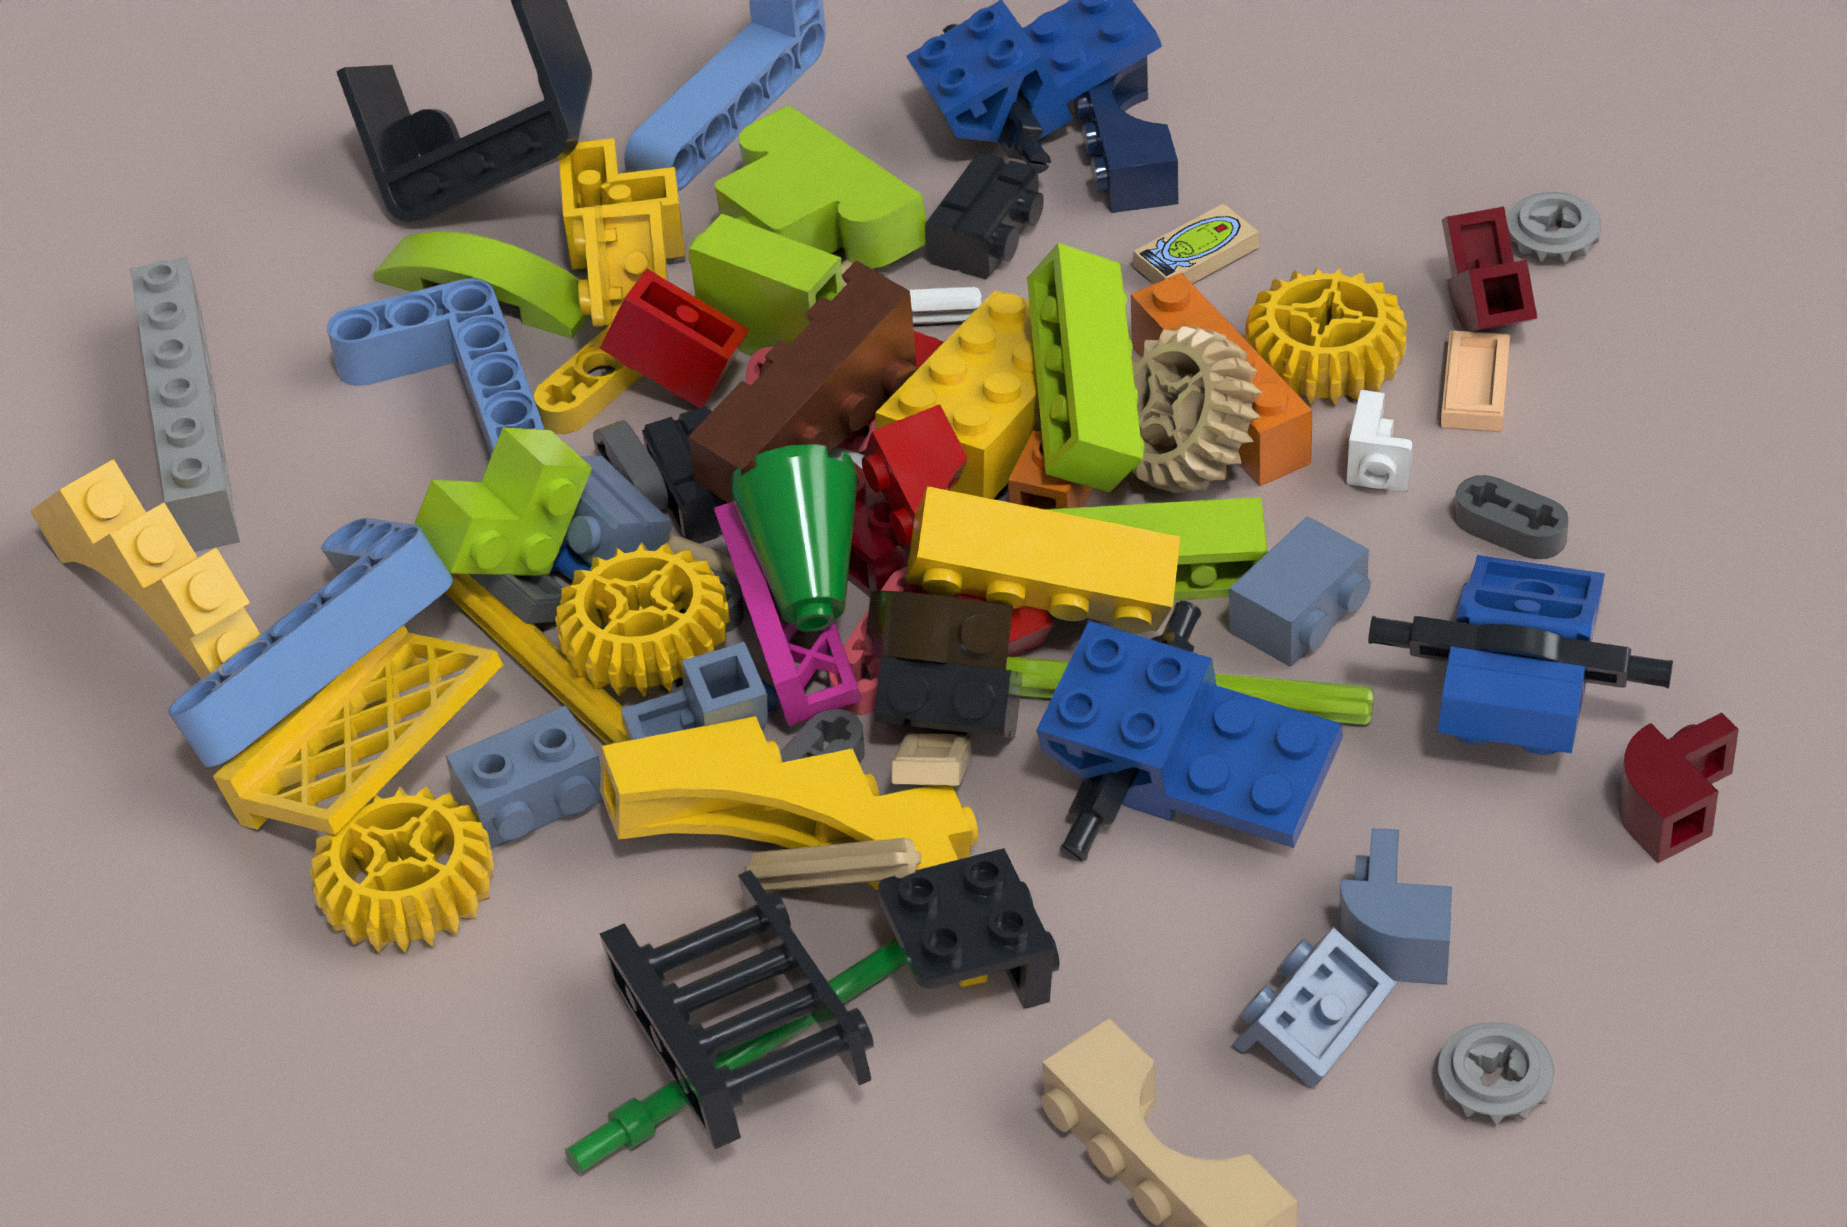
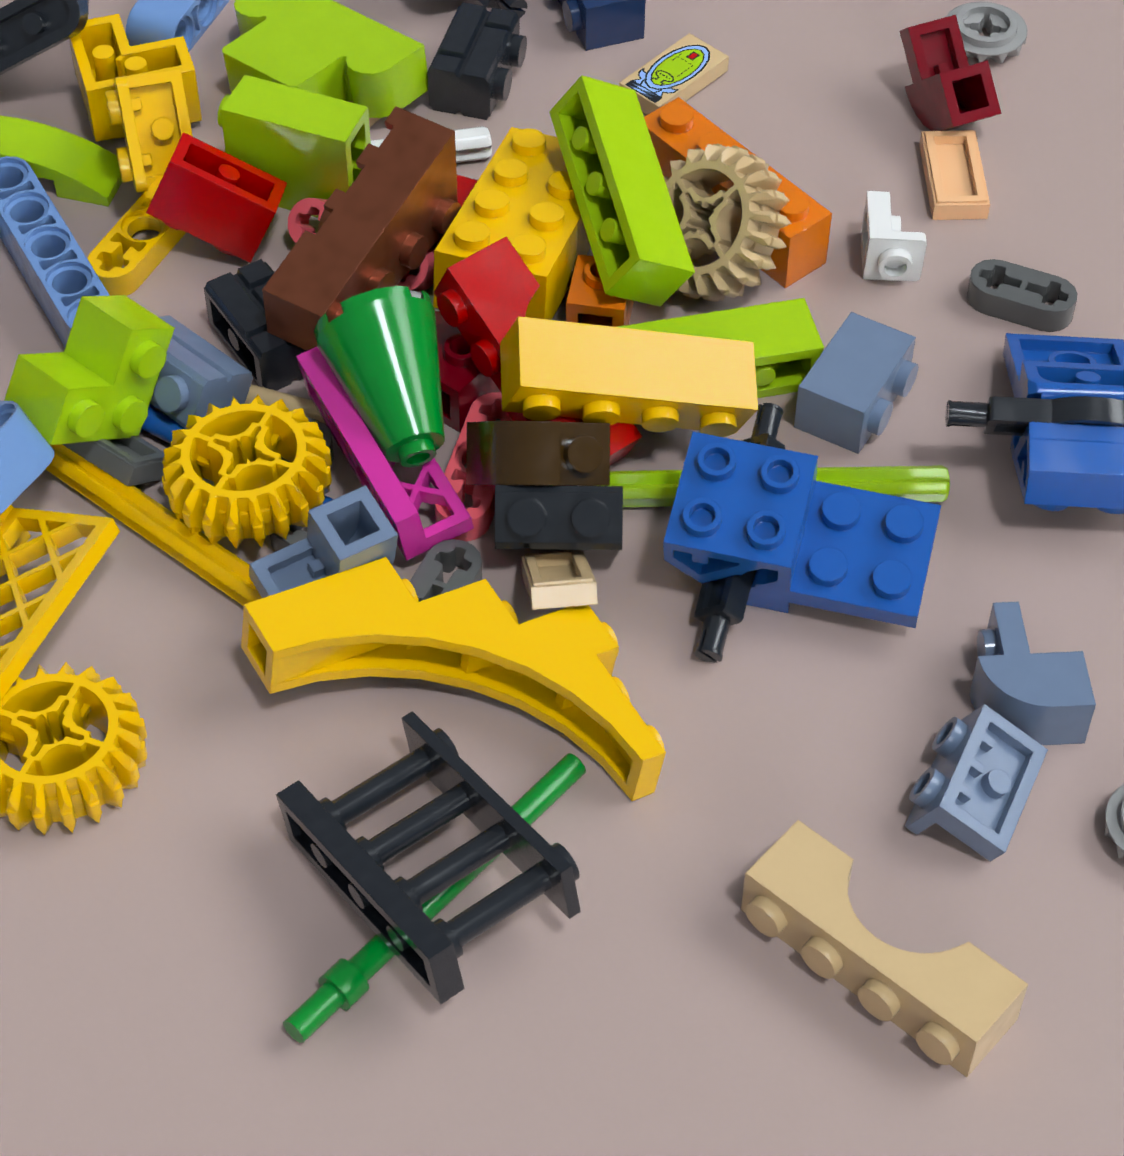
camera: 15 degrees left, 5 degrees up
(531, 778) = (163, 638): sand blue brick -> none
(629, 457) = (192, 310): dark grey beam -> none
(834, 864) = (493, 695): tan axle -> none
(969, 923) = (640, 742): black bracket -> none
(1328, 333) = (819, 140): yellow gear -> none

